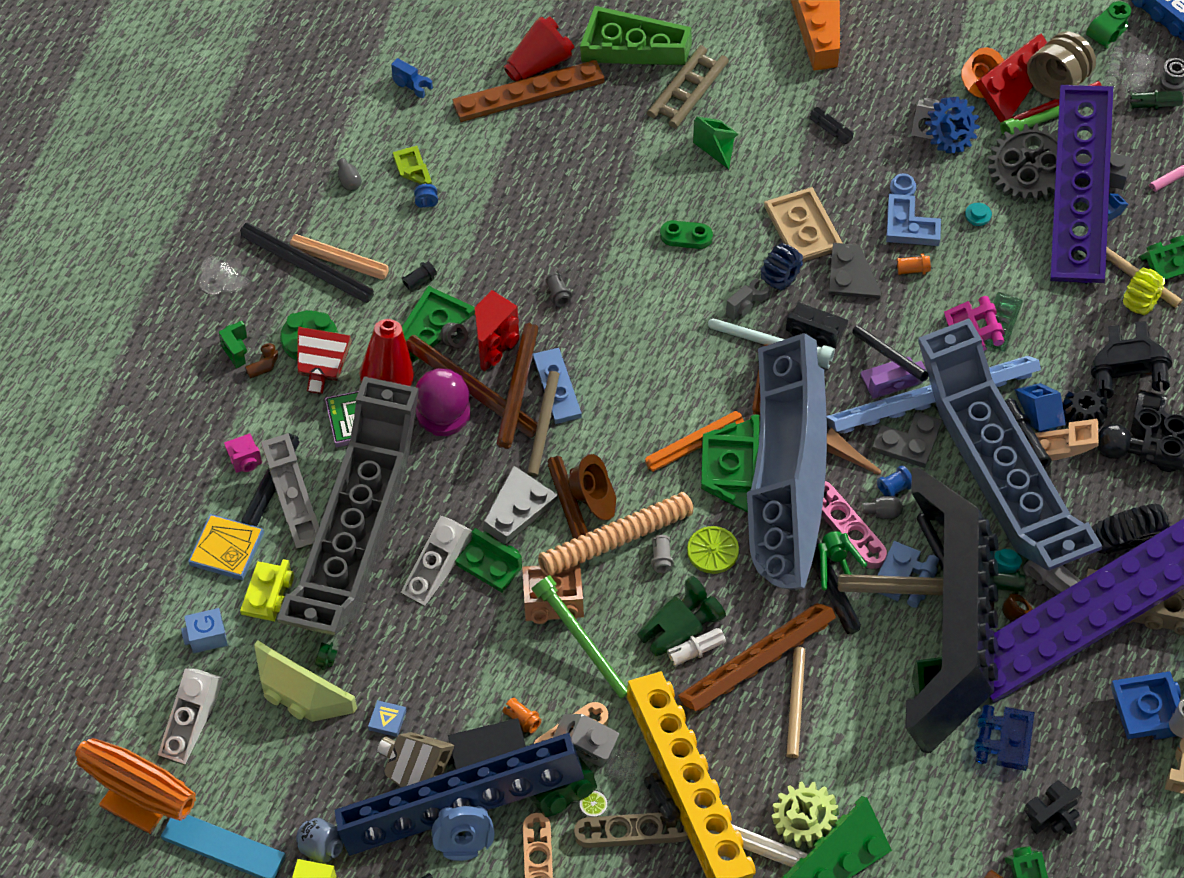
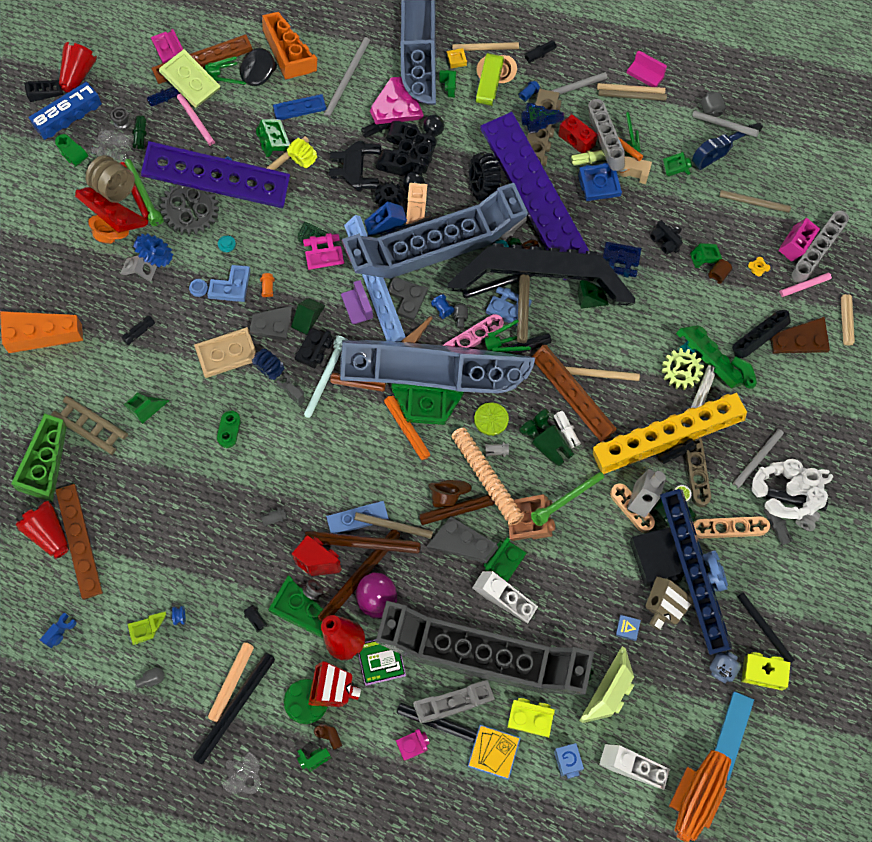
camera: 90 degrees left, 10 degrees up
(528, 719) = (622, 538): orange pin -> none
(871, 314) = (306, 315): none -> dark green slope
(890, 353) = (343, 302): black piece -> none

